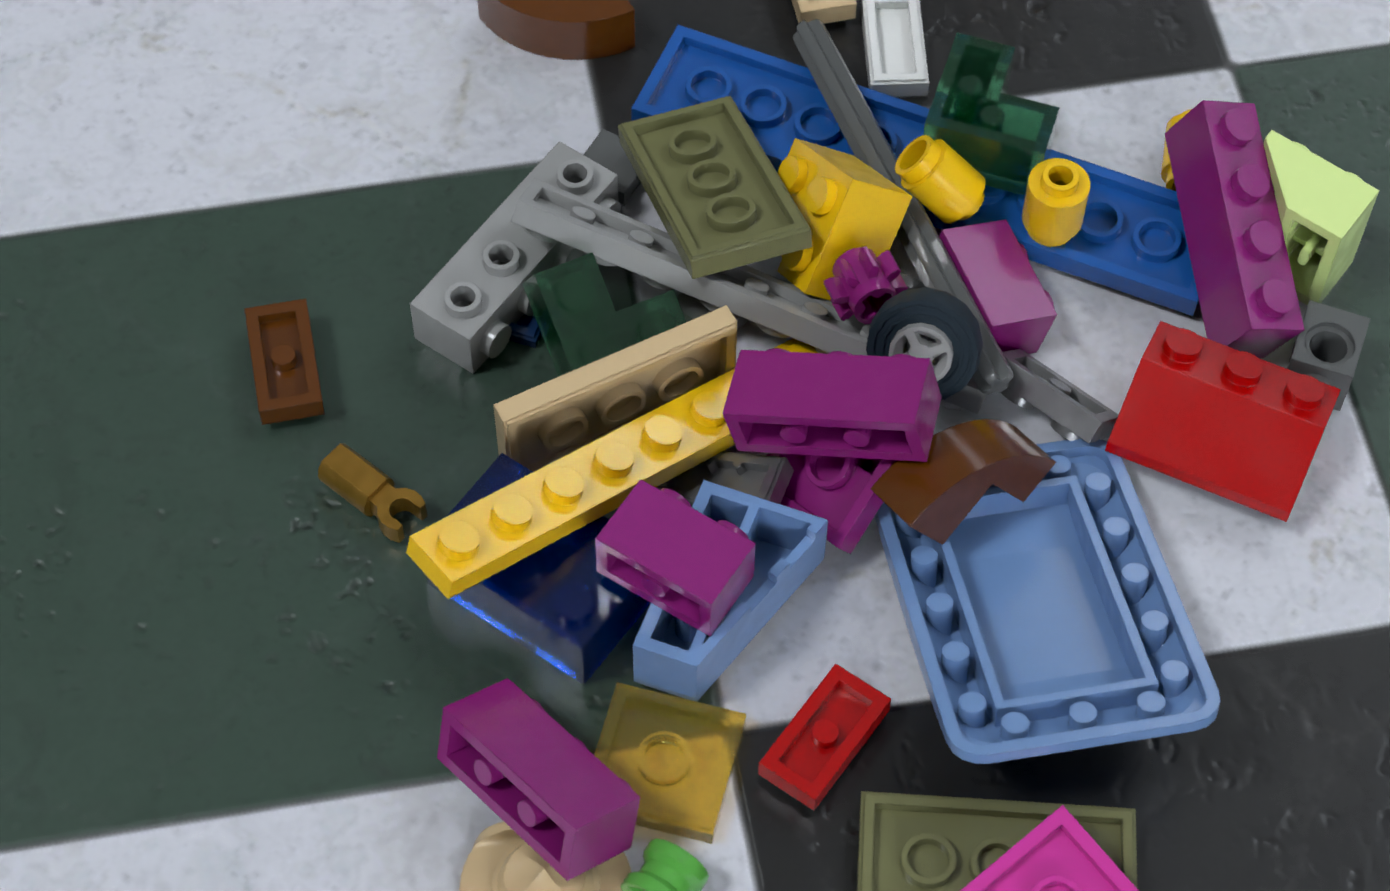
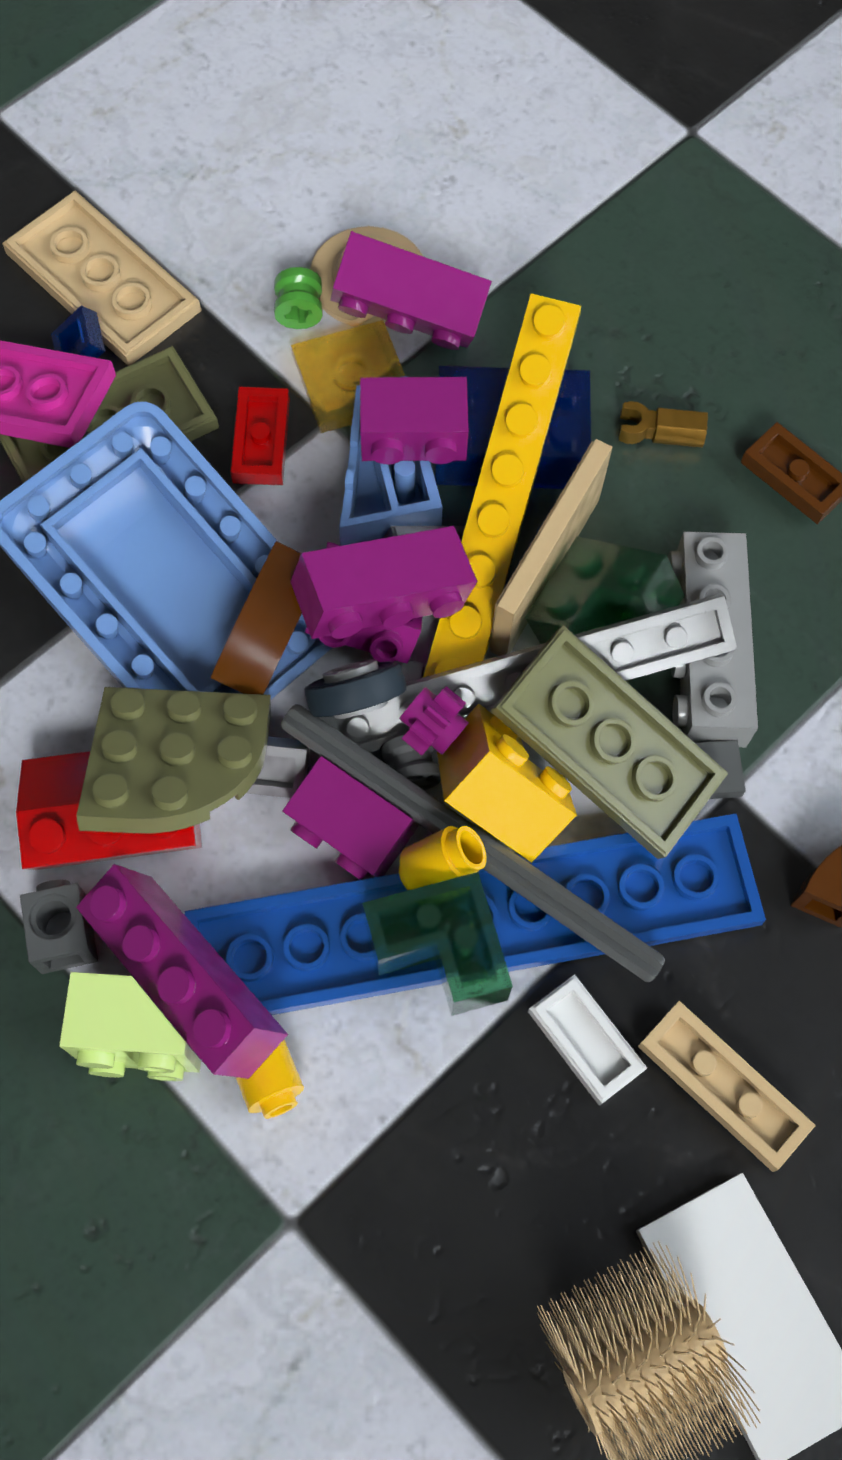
camera: 145 degrees right, 10 degrees up
(1055, 201) = (343, 915): yellow brick -> none
(1141, 394) = (170, 757): none -> olive plate

